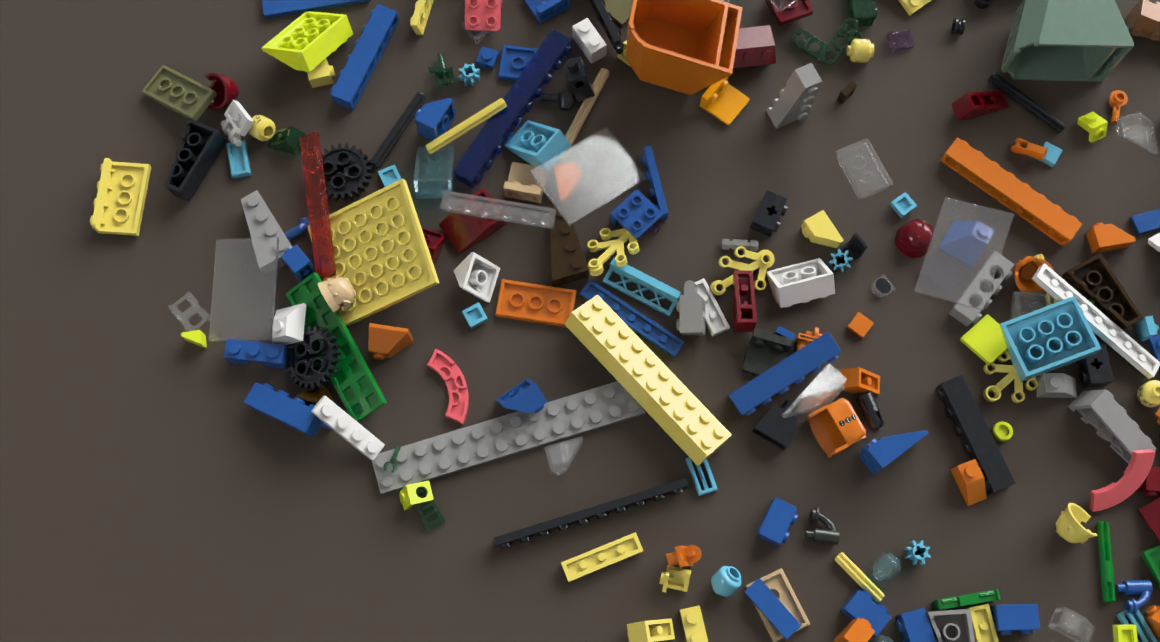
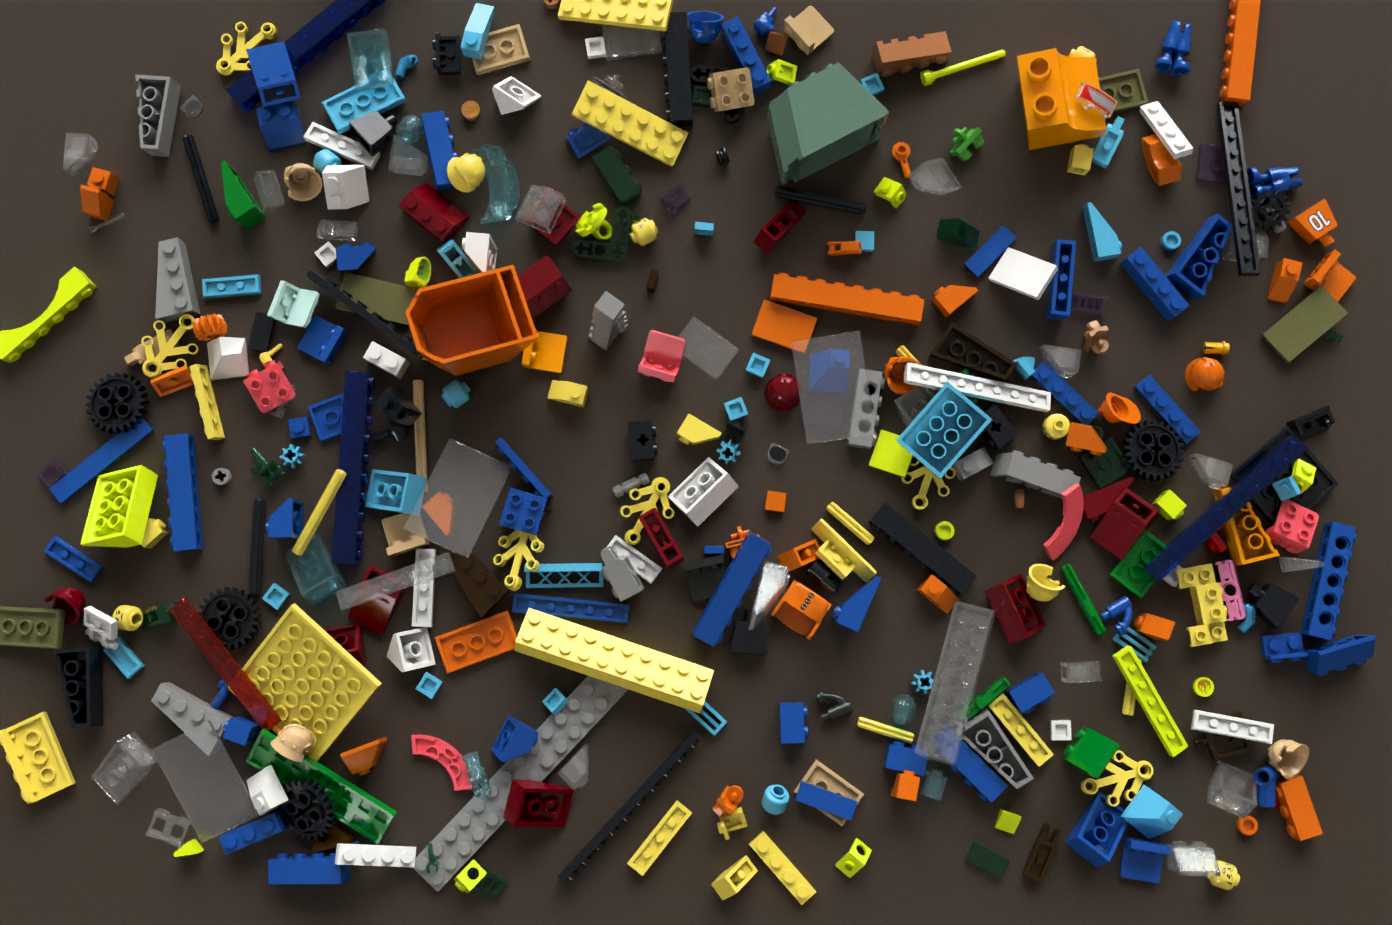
camera: 30 degrees left, 10 degrees up
(185, 243) = (124, 767): none -> clear slope
(247, 63) = (73, 559): none -> blue tile
(400, 57) = (216, 473): none -> light grey bush
(473, 409) = (476, 773): none -> clear light blue piece
(510, 242) = (423, 594): none -> white plate
(512, 464) = (537, 804): none -> dark red slope
(575, 387) = (555, 701): none -> medium azure tile
(632, 95) = (456, 393): none -> medium azure head
(727, 143) = (568, 393): none -> light yellow slope
(822, 21) = (593, 221): none -> neon yellow tile
(825, 153) = (662, 356): none -> coral bracket
(866, 229) = (735, 409): none -> medium azure plate
(896, 398) = (839, 554): none -> light yellow bracket
(913, 73) = (704, 228): none -> medium azure tile
(918, 379) = (850, 523): none -> light yellow axle
(939, 181) = (782, 324): none -> orange tile
(949, 566) = (955, 683): none -> clear brick
(1036, 533) = (1015, 609): none -> dark red slope
(1087, 439) = (1019, 498): none -> nougat tile
(1138, 187) = (957, 233): none -> clear green slope

